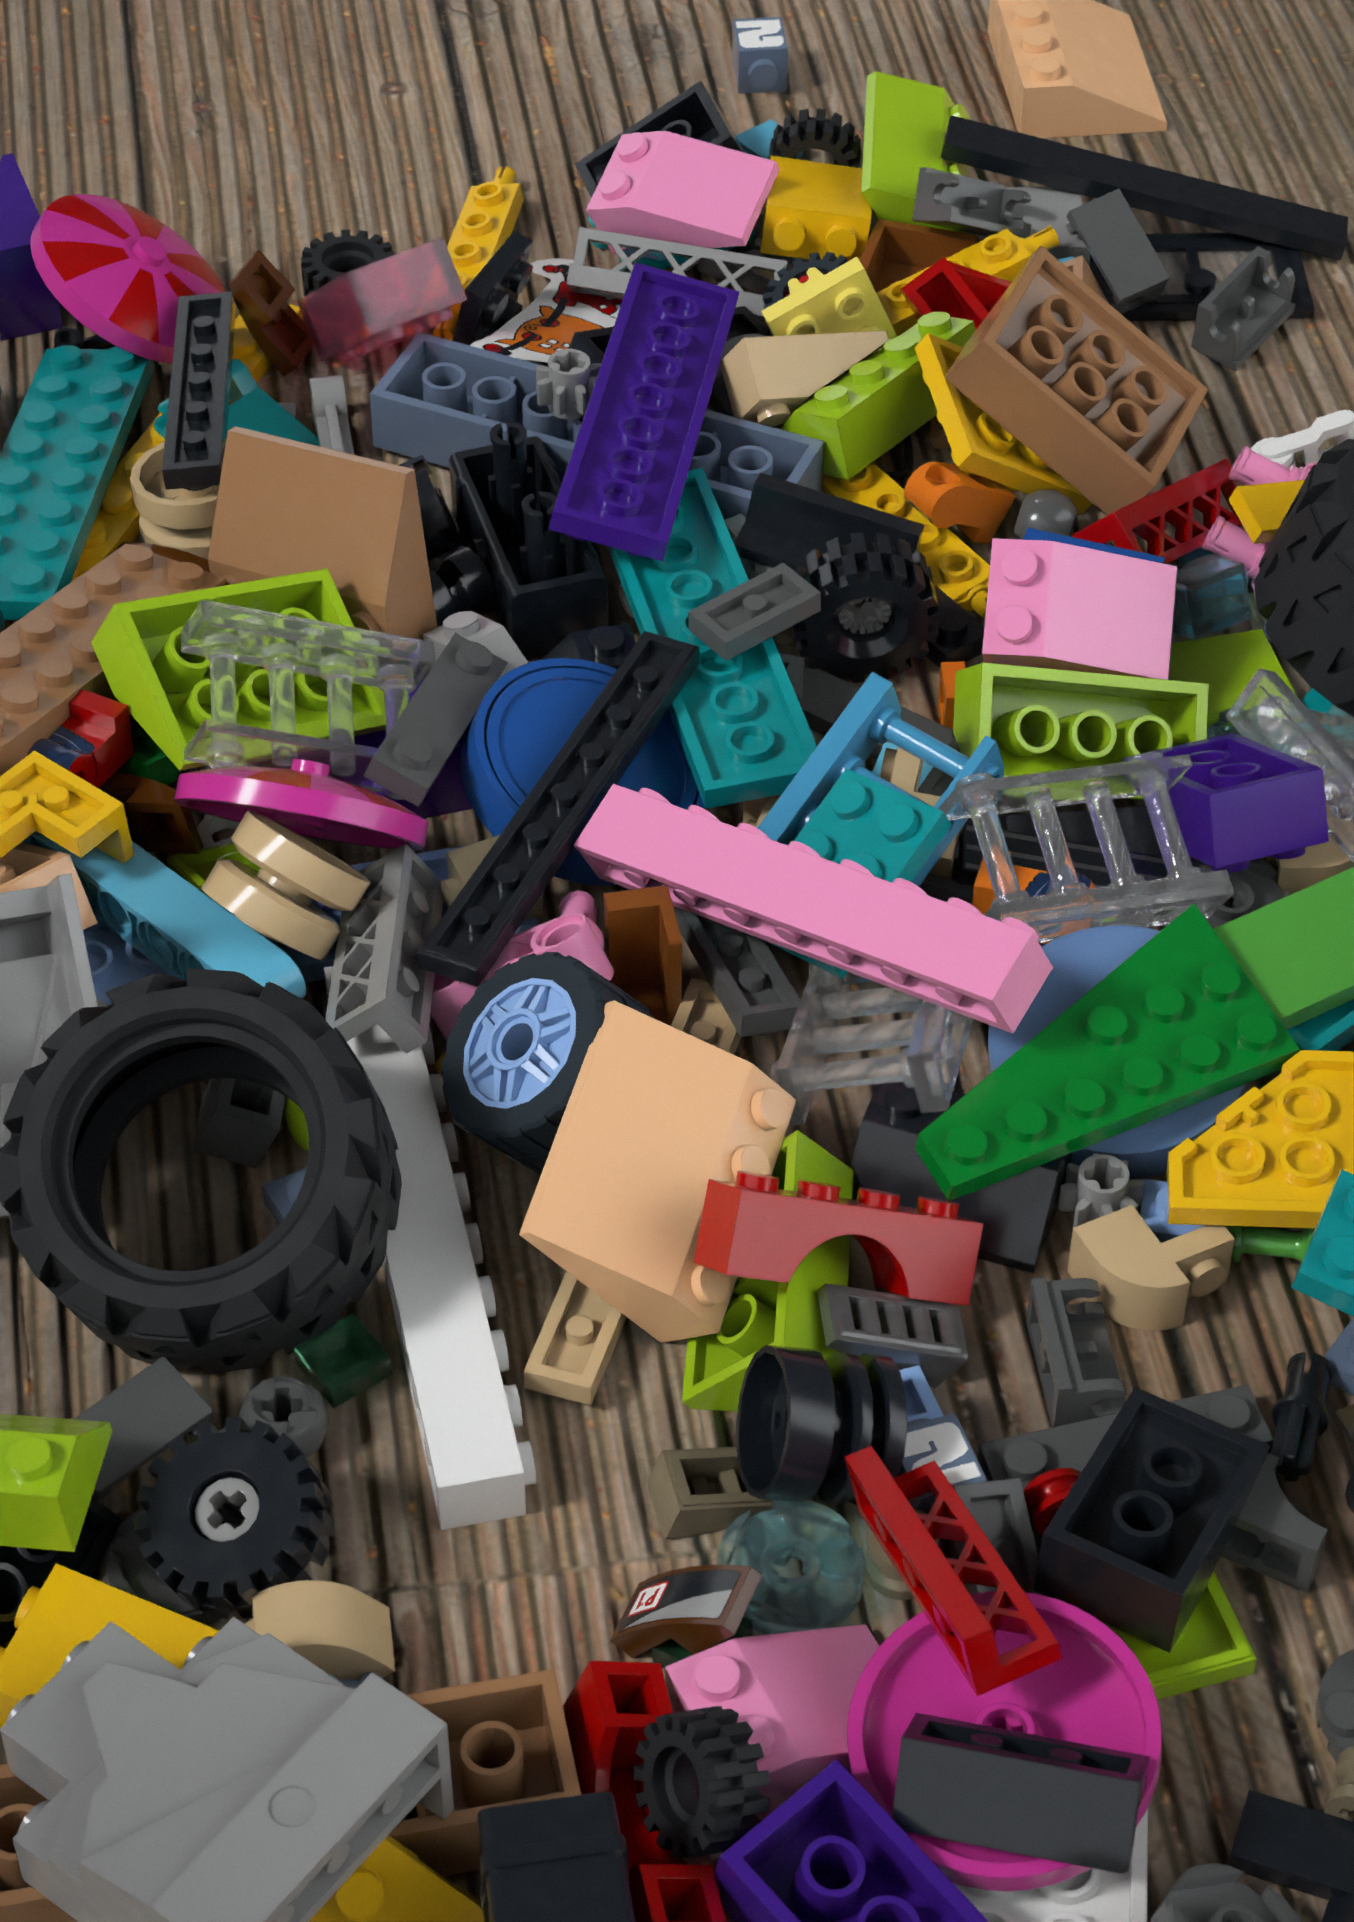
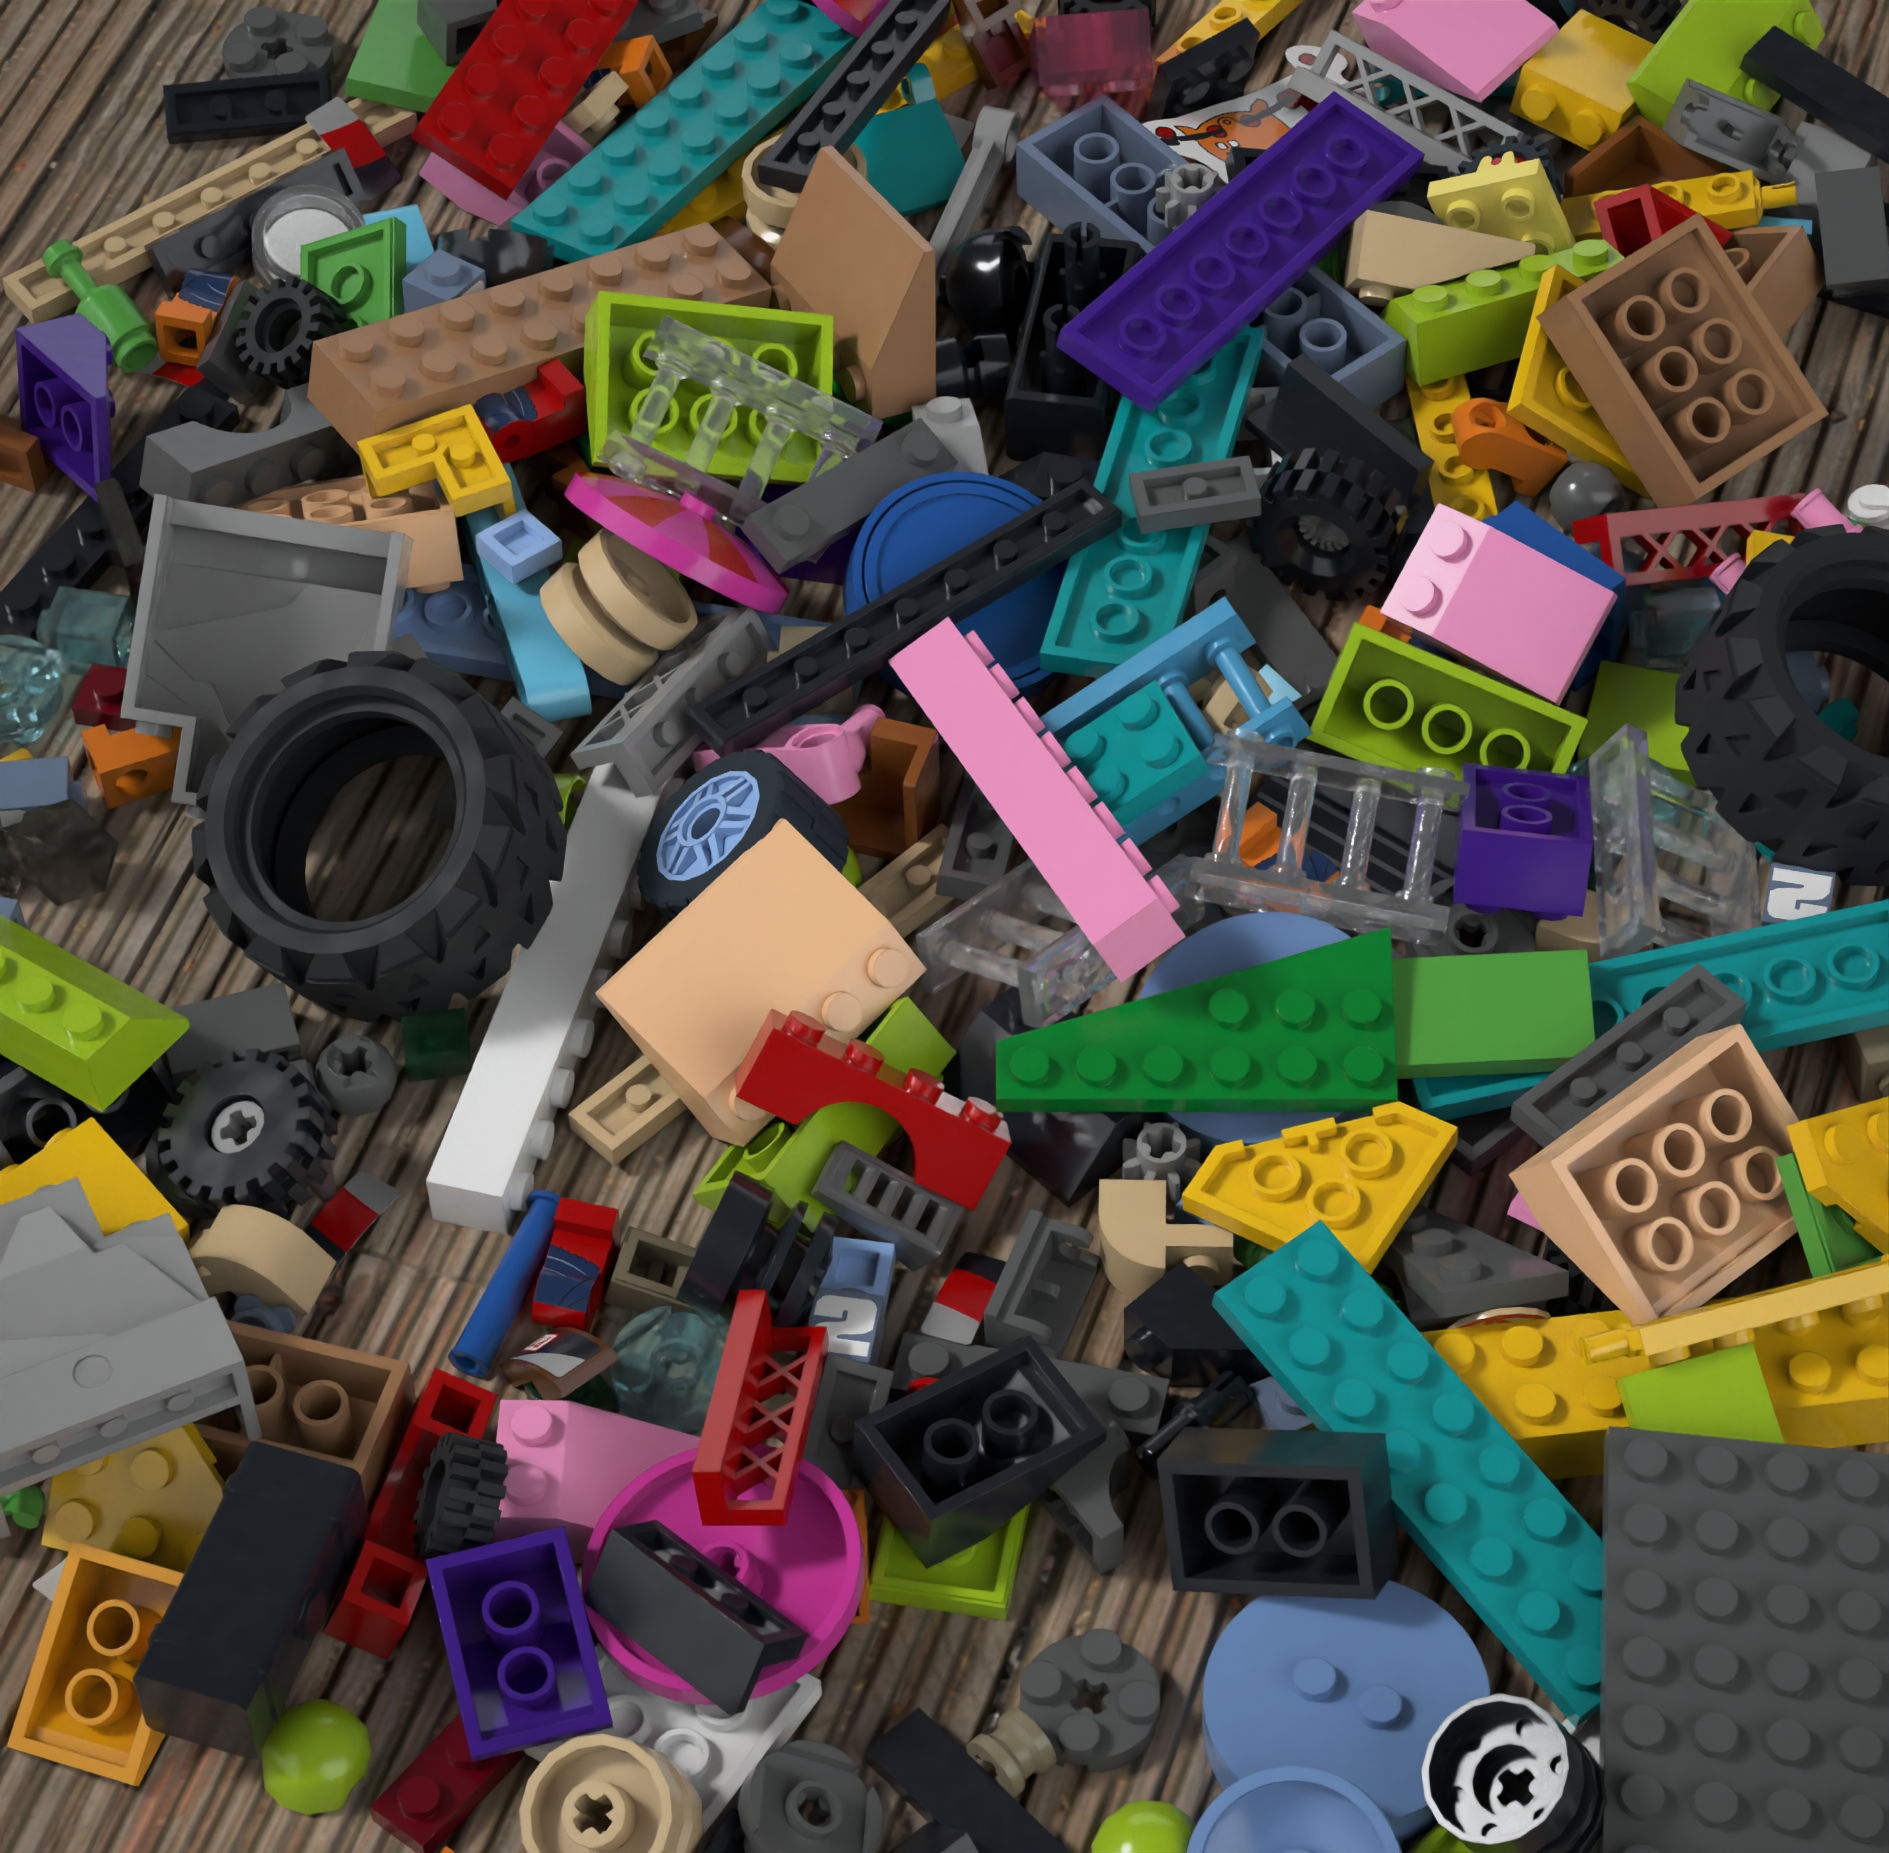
camera: 30 degrees right, 5 degrees up
(153, 865) = (519, 546): none -> light blue plate
(359, 1552) = (350, 1214): none -> sticker
(571, 1555) = (507, 1287): none -> blue pin
(628, 1510) = (577, 1265): none -> red leg
(1011, 1390) = (963, 1299): none -> sticker
(1247, 1332) = (1183, 1336): none -> black slope

